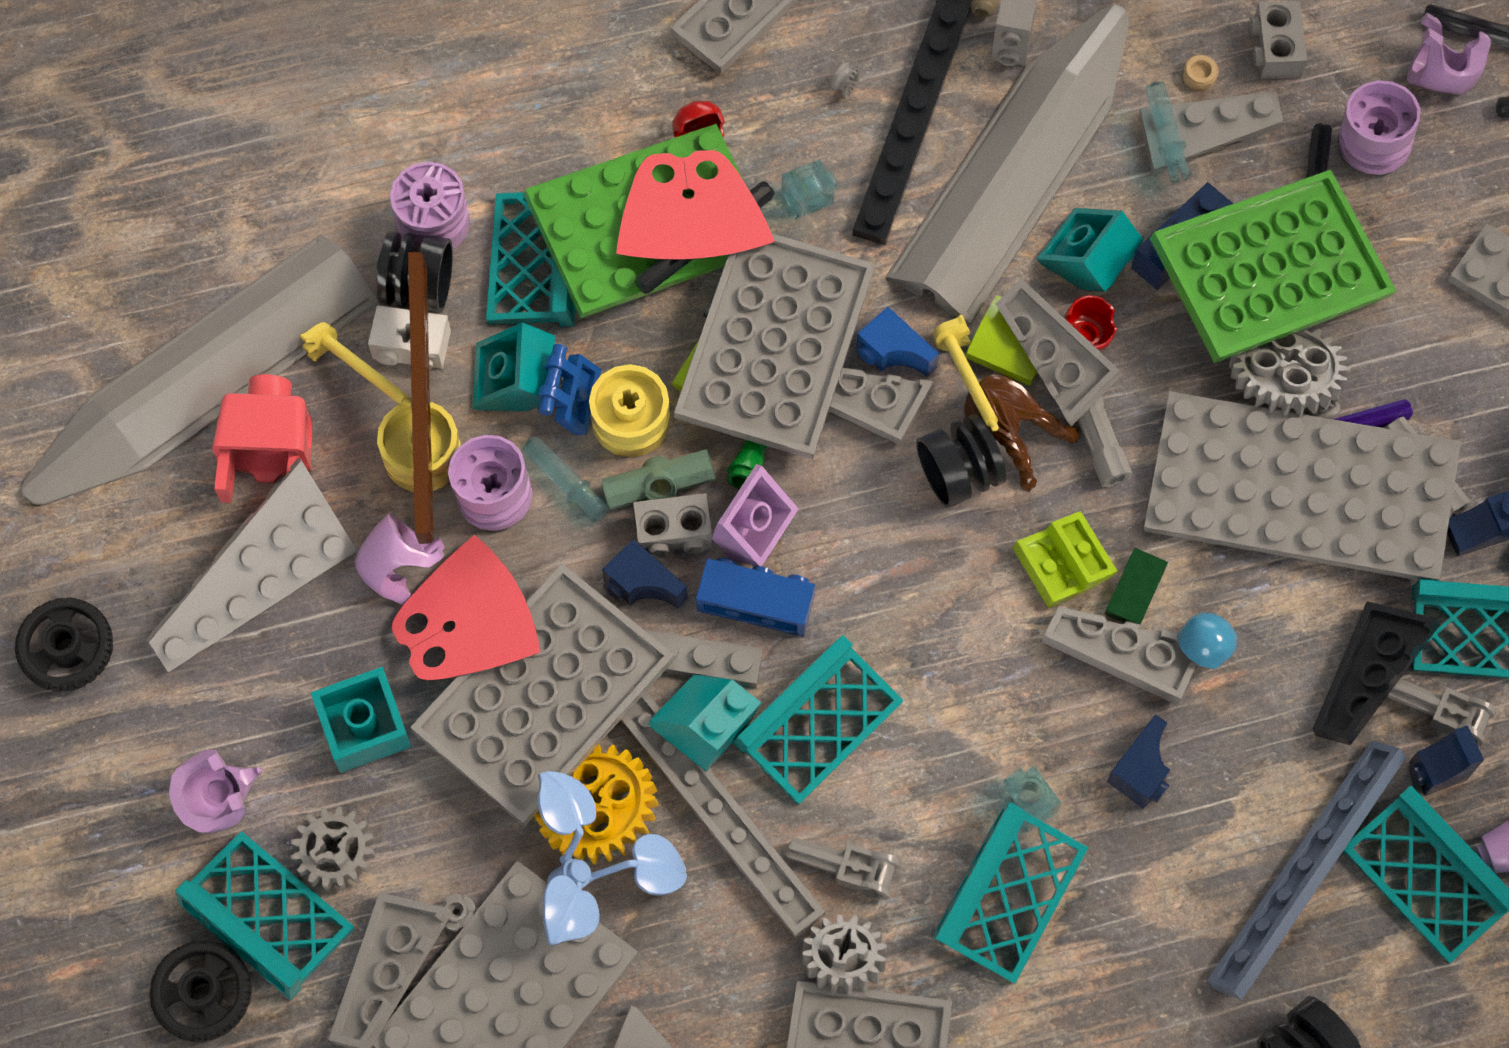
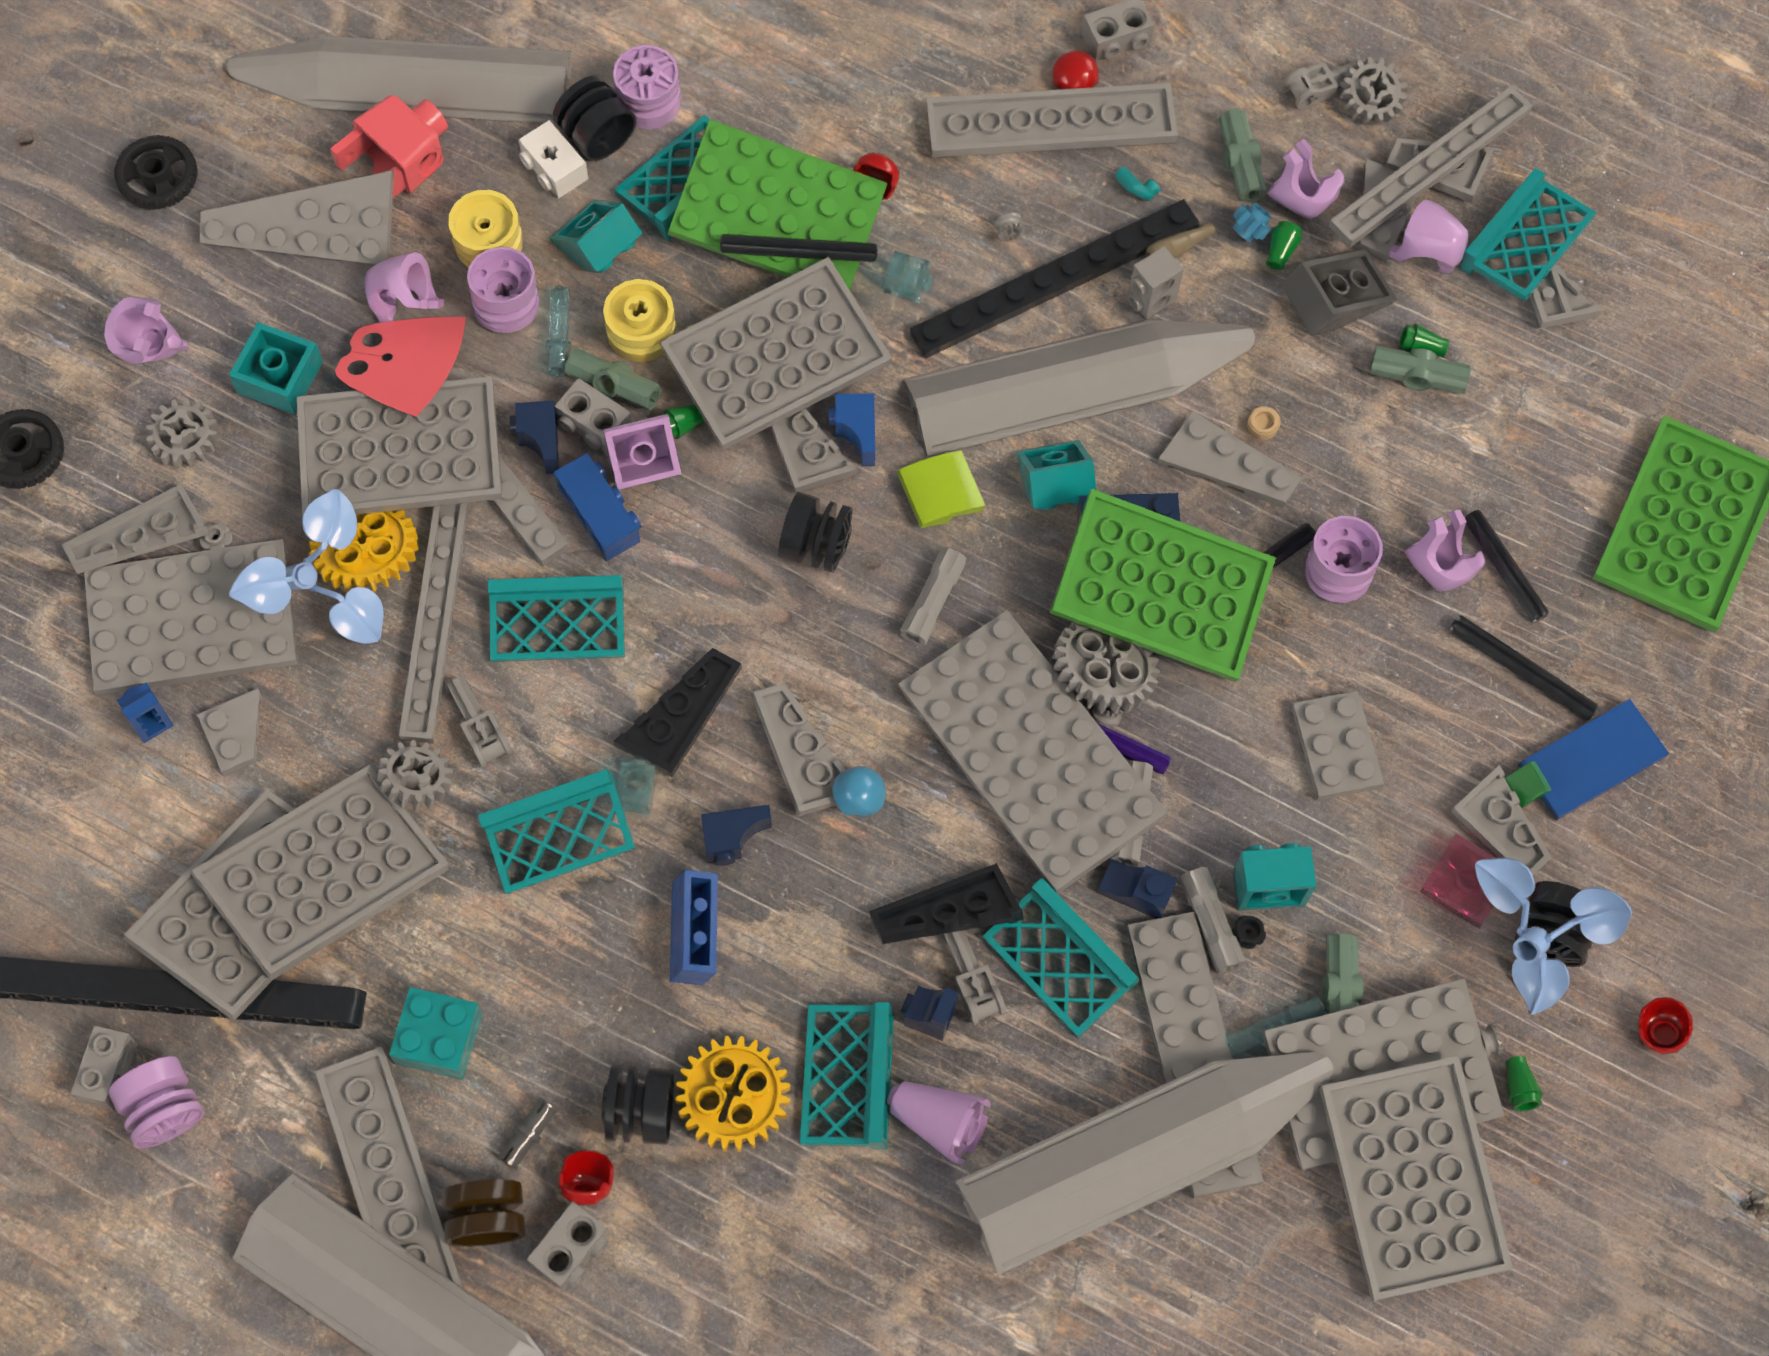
camera: 40 degrees right, 0 degrees up
(242, 939) = (77, 446): teal fence -> none
(324, 338) = (499, 116): light yellow piece -> none
(420, 398) = (503, 194): reddish brown tile -> none
(573, 398) = (627, 269): blue plate -> none
(705, 717) = (482, 552): teal slope -> none
(711, 224) = (781, 222): coral piece -> none
(950, 337) = (900, 451): light yellow piece -> none
(1002, 713) = (679, 716): none -> black wing
(1014, 403) = (879, 519): reddish brown hair -> none
(1062, 356) = (955, 518): light grey wing -> none
(1064, 559) = (824, 659): lime slope -> none
(1093, 320) = (1000, 520): red hair -> none
(1136, 587) = (852, 719): dark green tile -> none
(1171, 144) = (1189, 439): clear light blue axle -> none
(1198, 868) = (693, 927): none -> blue brick
(1283, 40) = (1344, 447): light grey brick -> none
(1306, 870) = (768, 995): sand blue plate -> none
(1395, 961) = (704, 1082): none -> yellow gear

